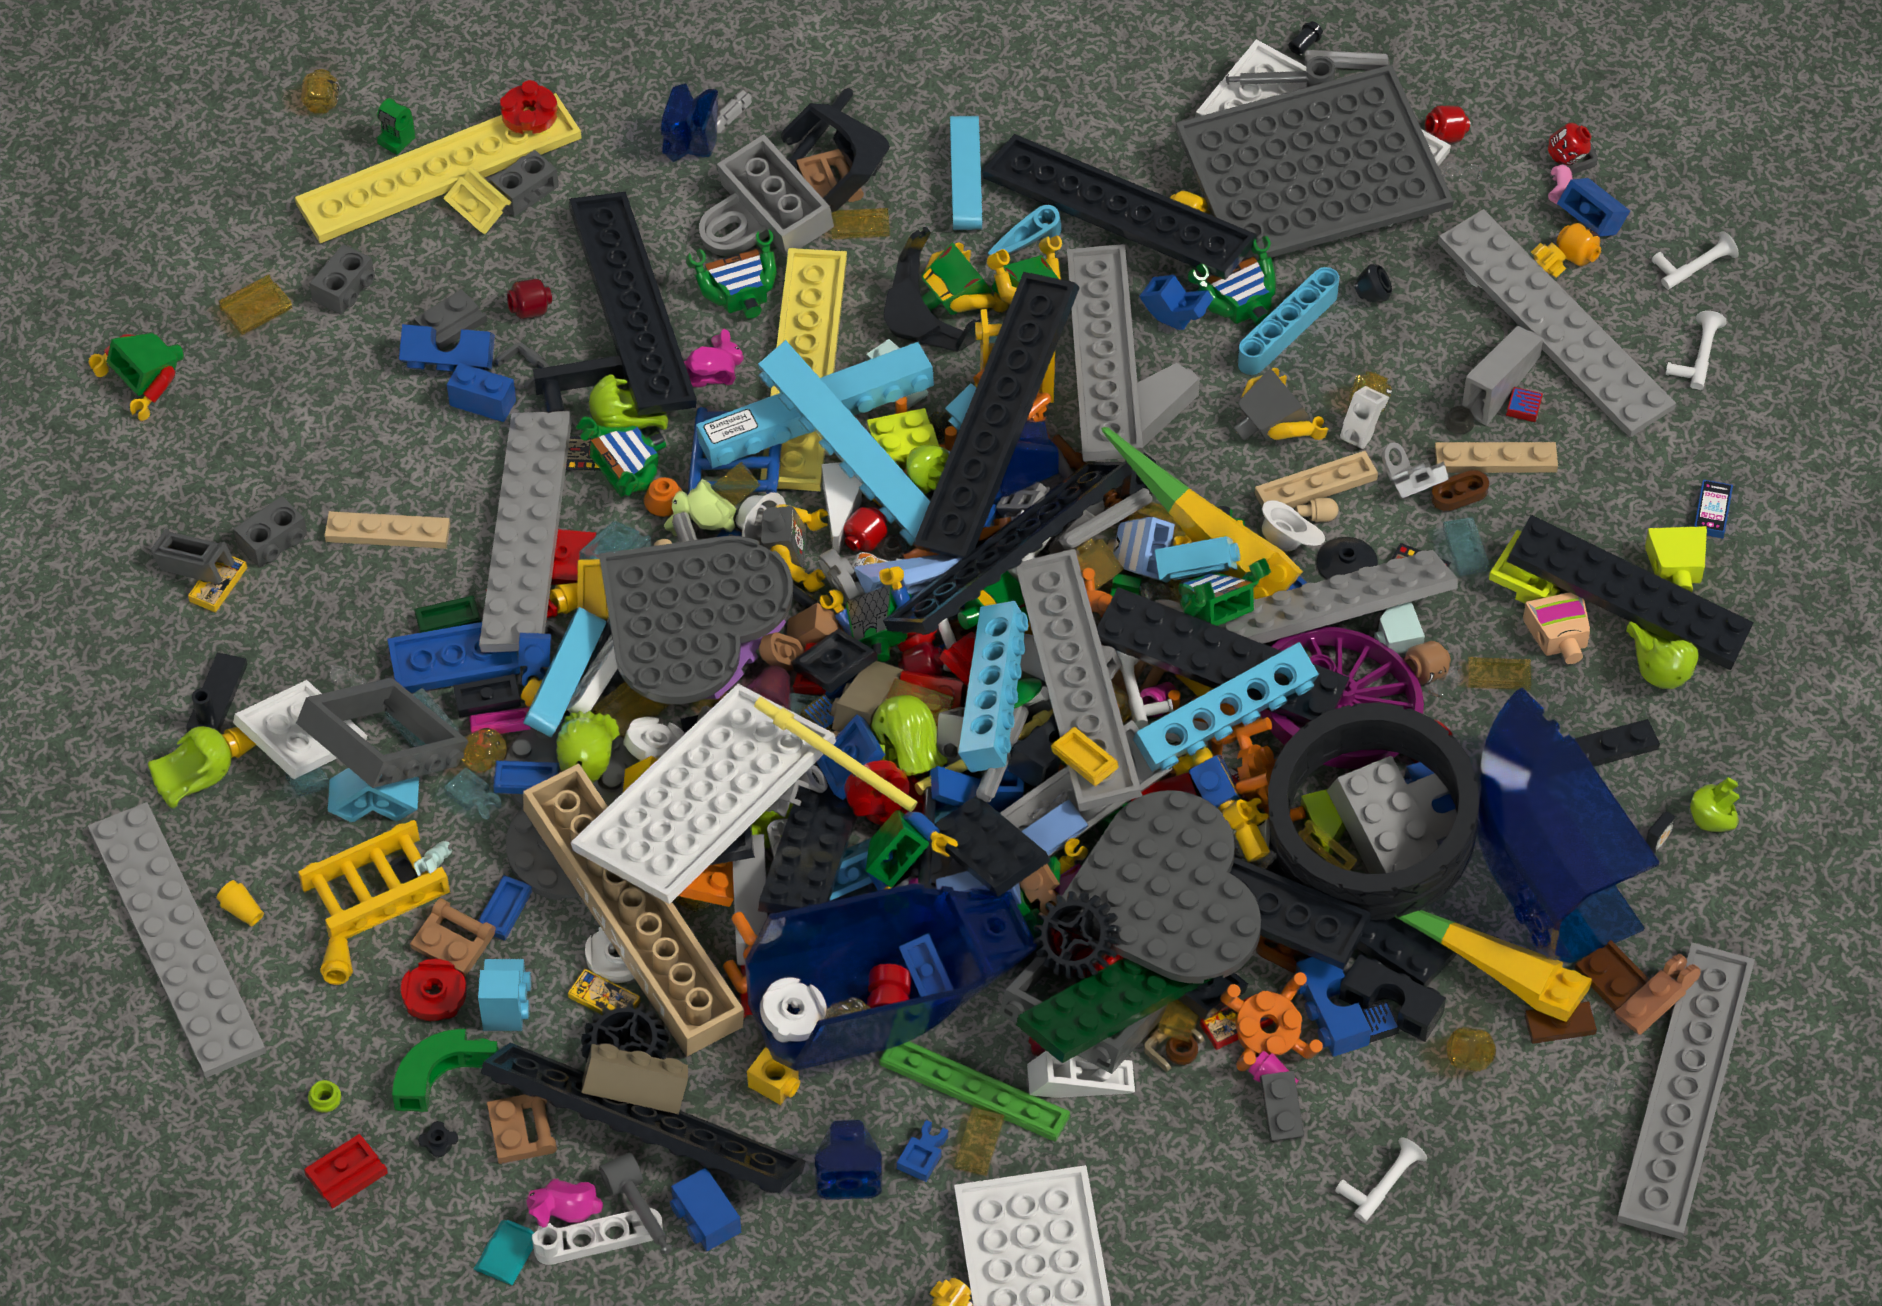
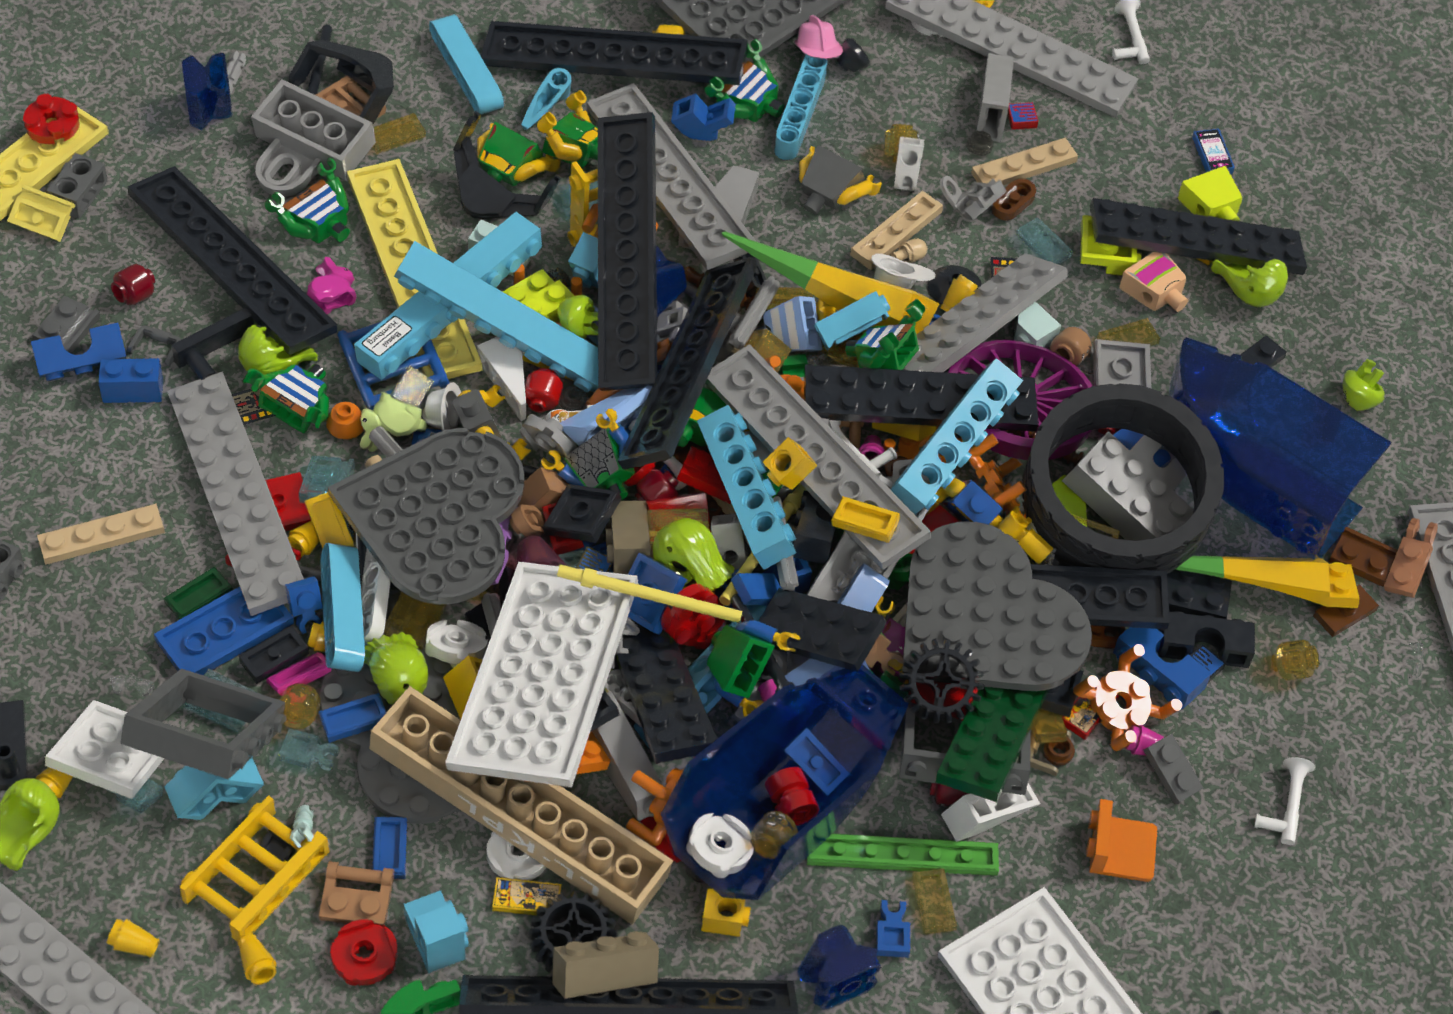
camera: 30 degrees left, 0 degrees up
(1040, 678) = (799, 468): none -> yellow brick
(1186, 1156) = (1121, 845): none -> orange bracket
(1341, 257) = (818, 39): none -> bright pink piece
(1342, 564) = (958, 290): none -> yellow cone
(1469, 701) = (1121, 363): none -> light grey plate

